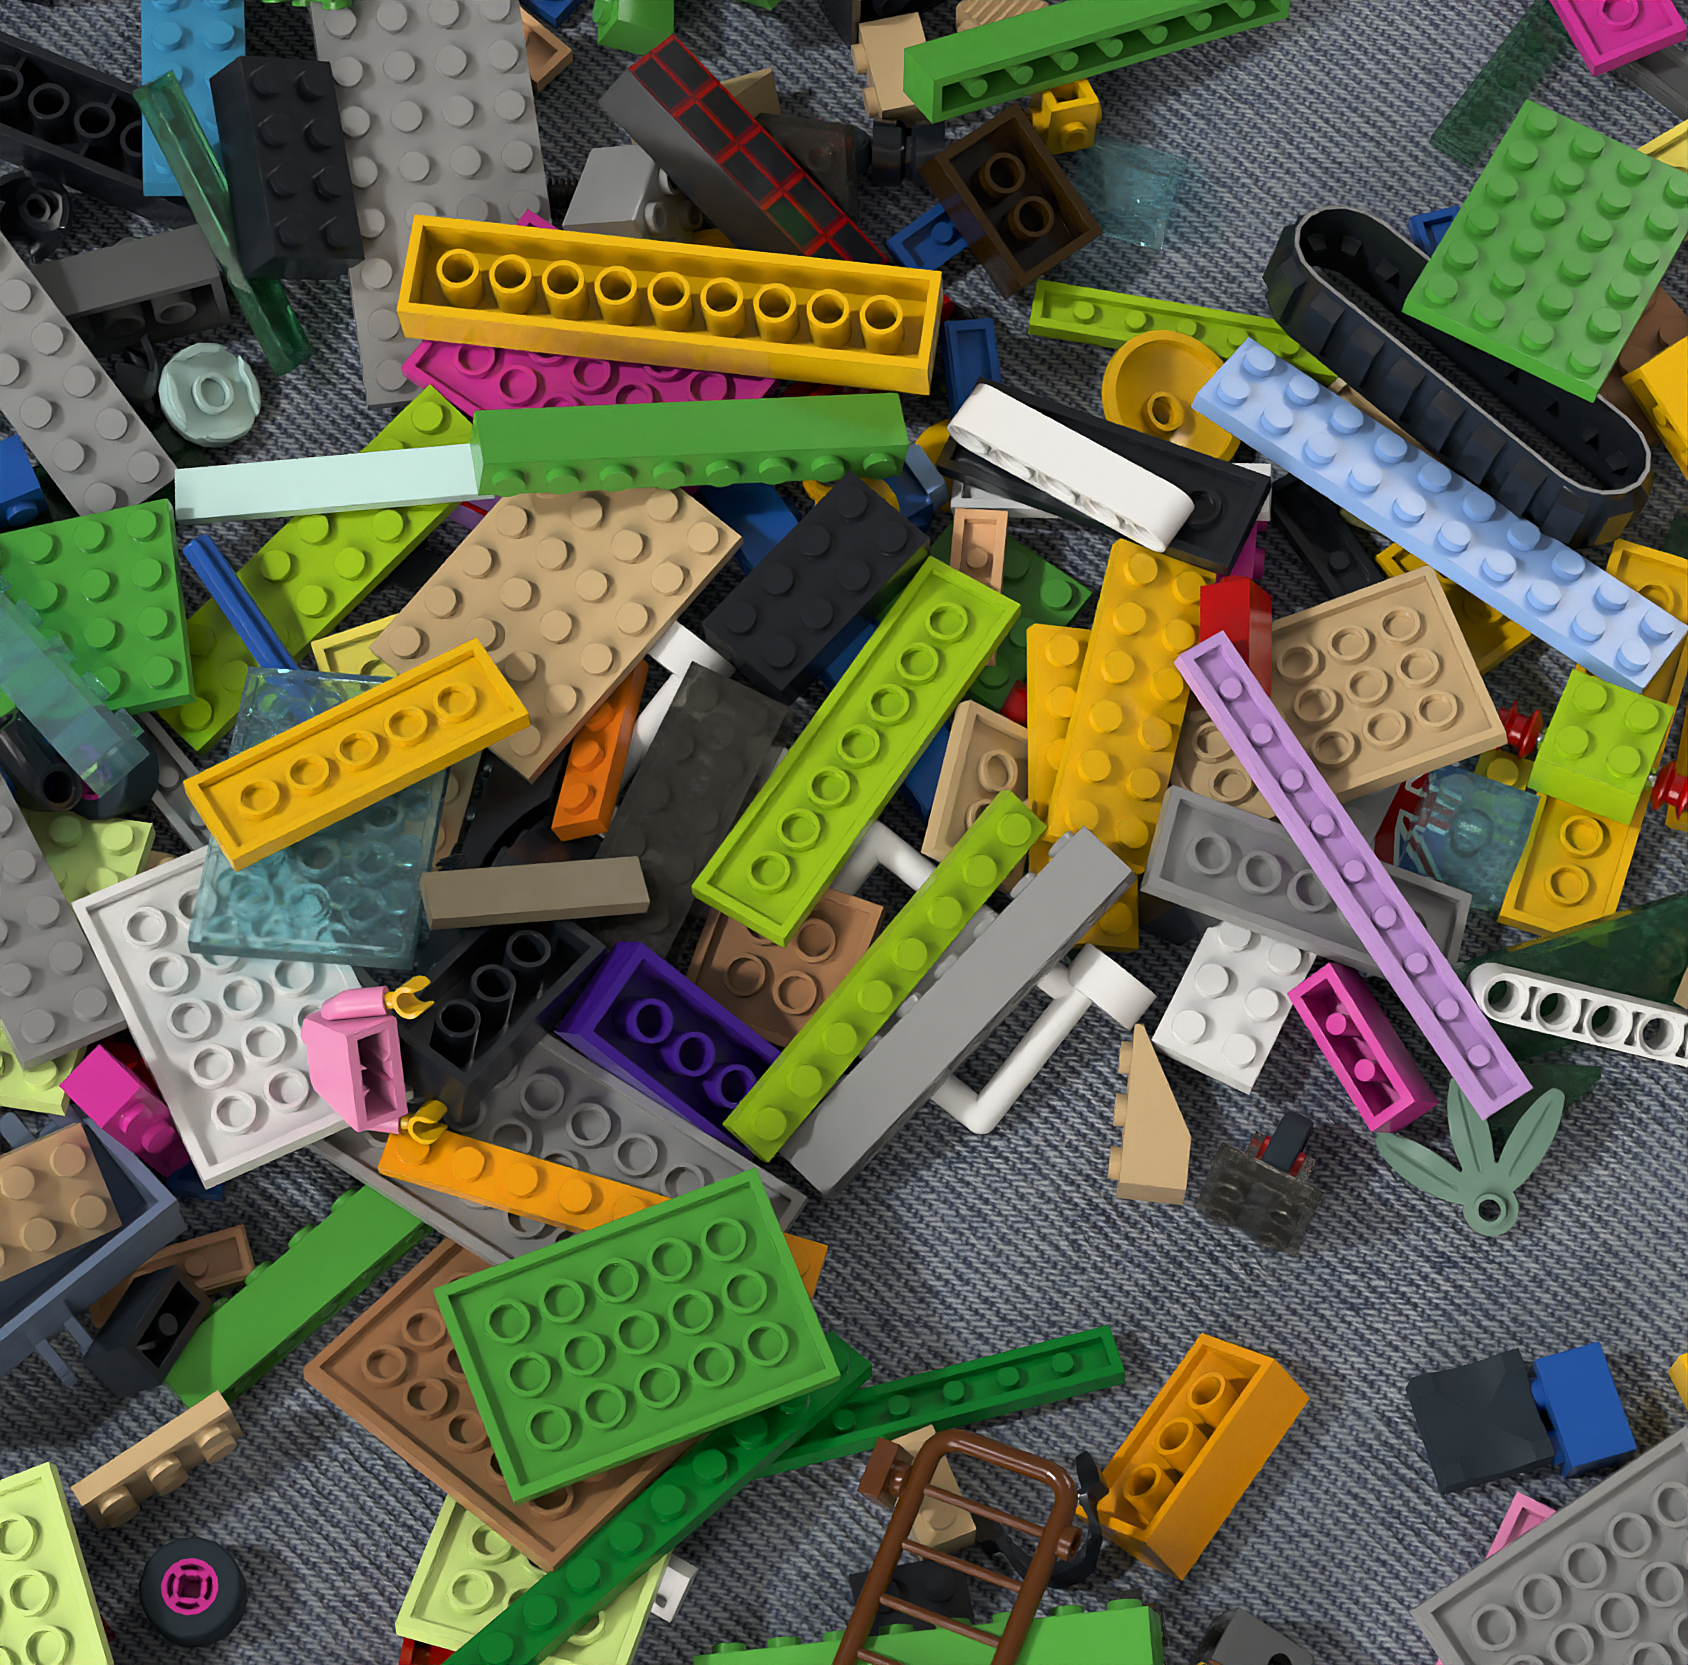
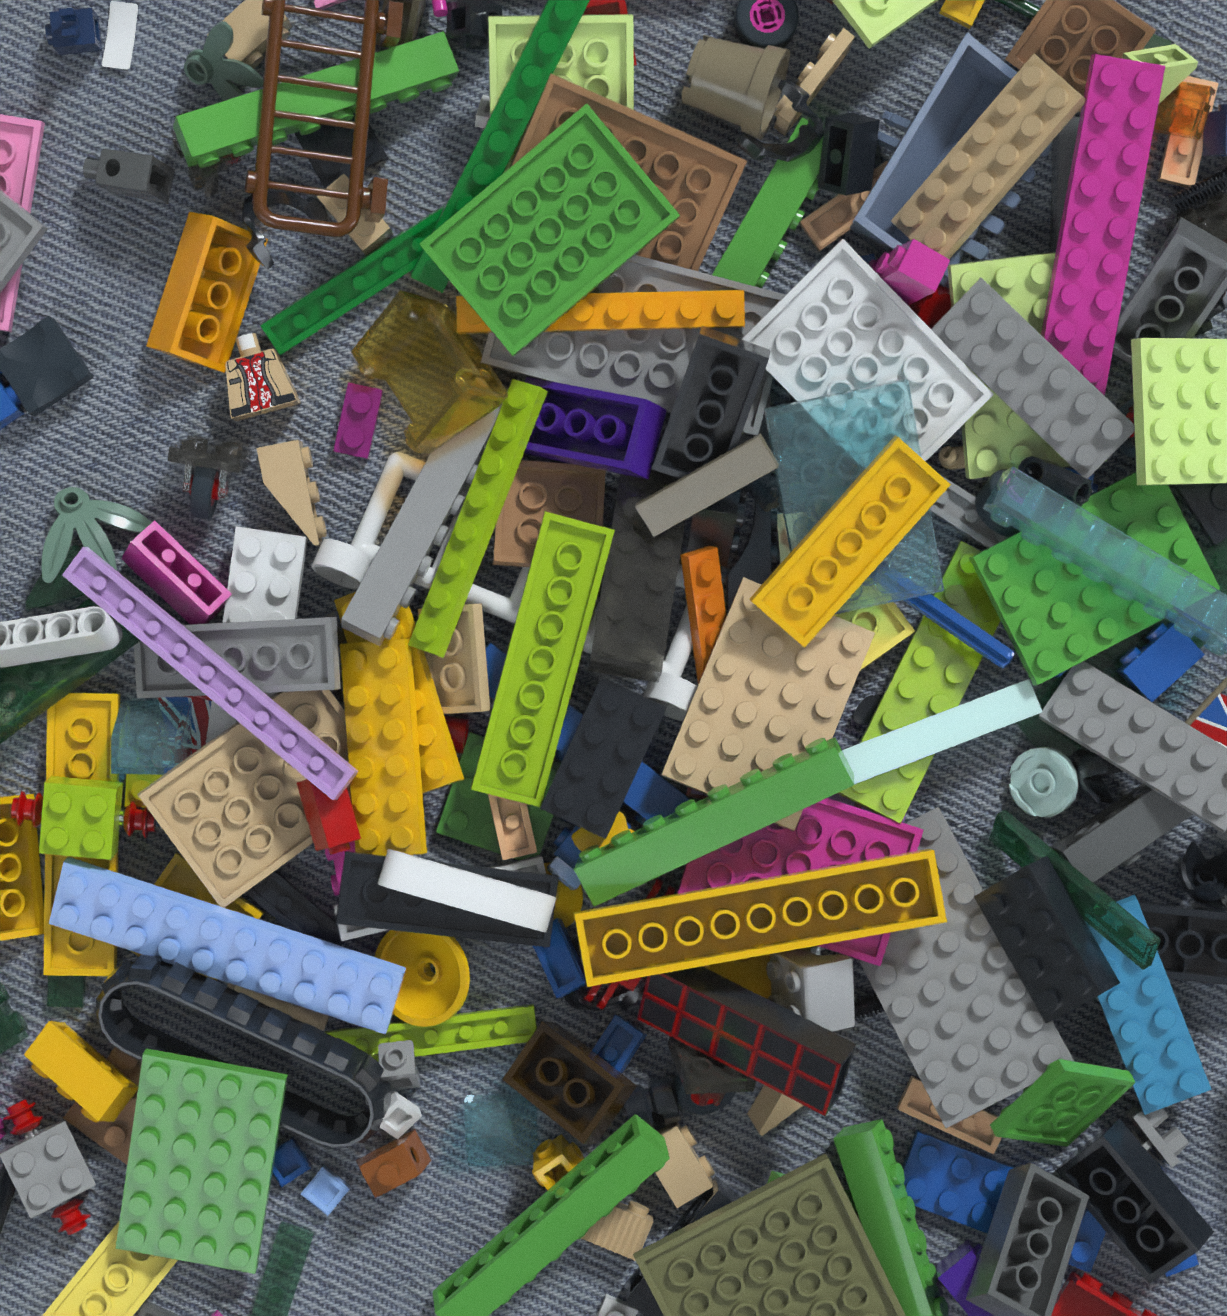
camera: 160 degrees right, 20 degrees up
(195, 1377) = (808, 136): none -> black helmet
(273, 1494) = (736, 82): none -> dark tan piece
(359, 1061) = (771, 333): bright pink torso -> none
(886, 1211) = (429, 369): none -> clear yellow windscreen
(1020, 1198) = (358, 421): none -> magenta plate
(1153, 1296) = (257, 381): none -> torso
(1242, 307) = (399, 1064): none -> light grey bracket
(1257, 243) = (400, 1116): none -> white plate
(1289, 179) = (394, 1163): none -> dark orange torso
(1397, 186) = (325, 1190): none -> light blue tile

